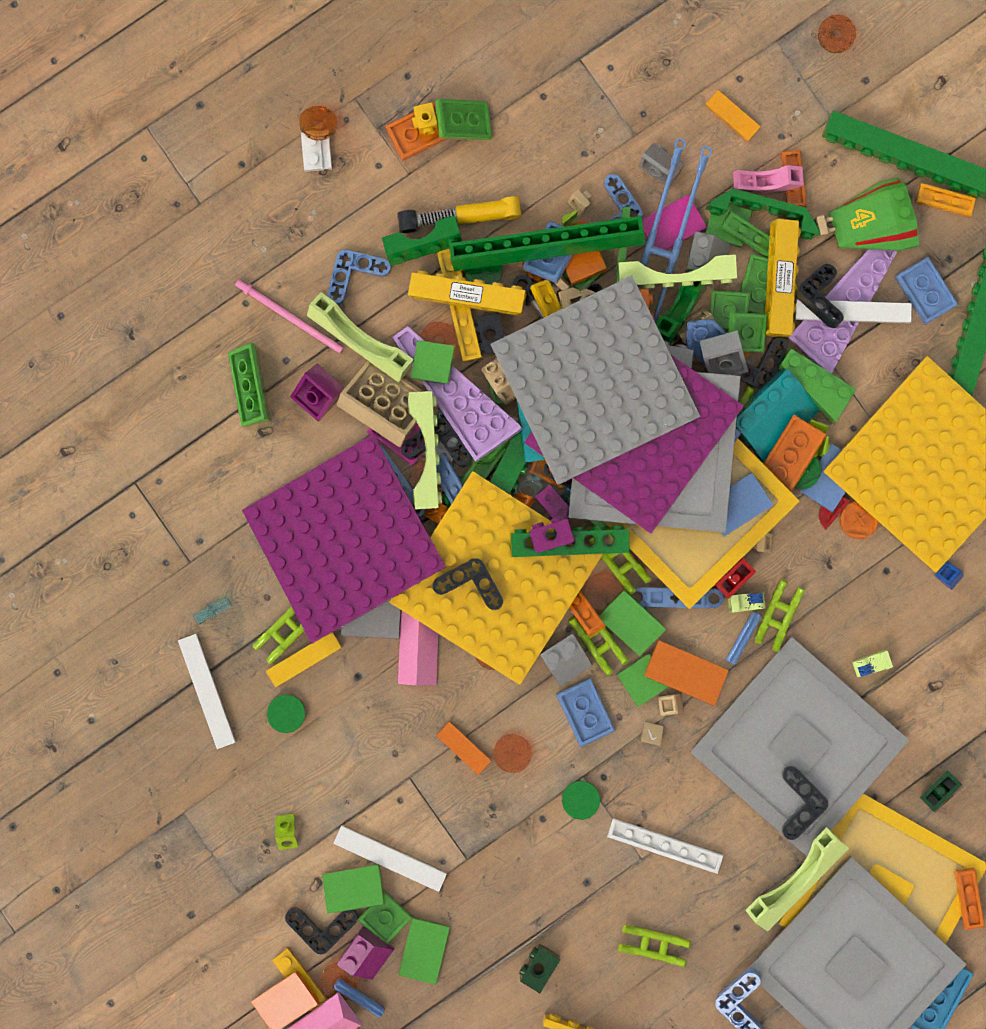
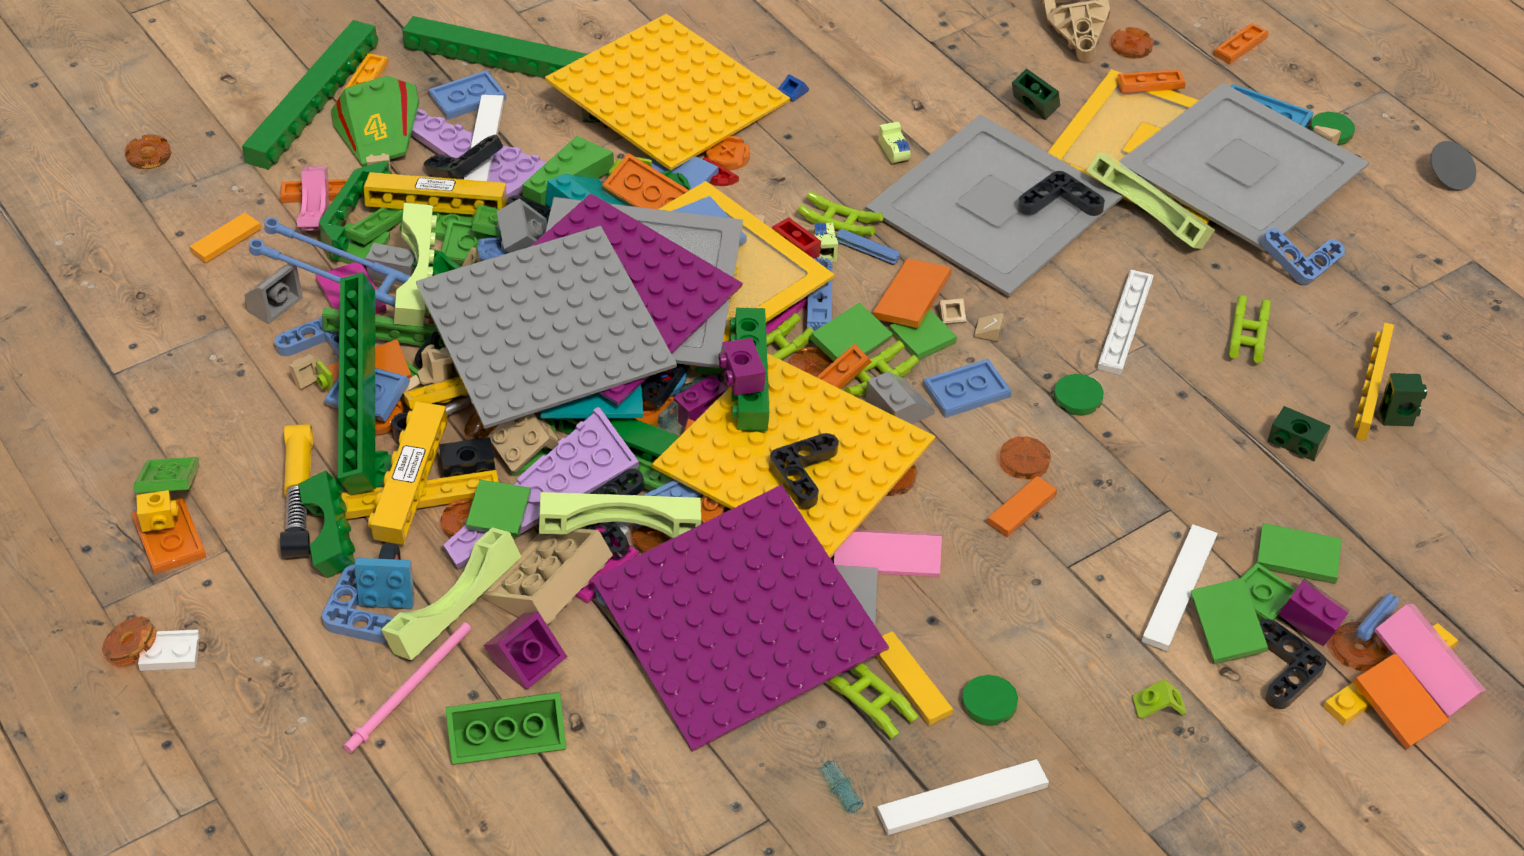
camera: 90 degrees left, 40 degrees down
(373, 289) = (385, 579): none -> dark azure plate

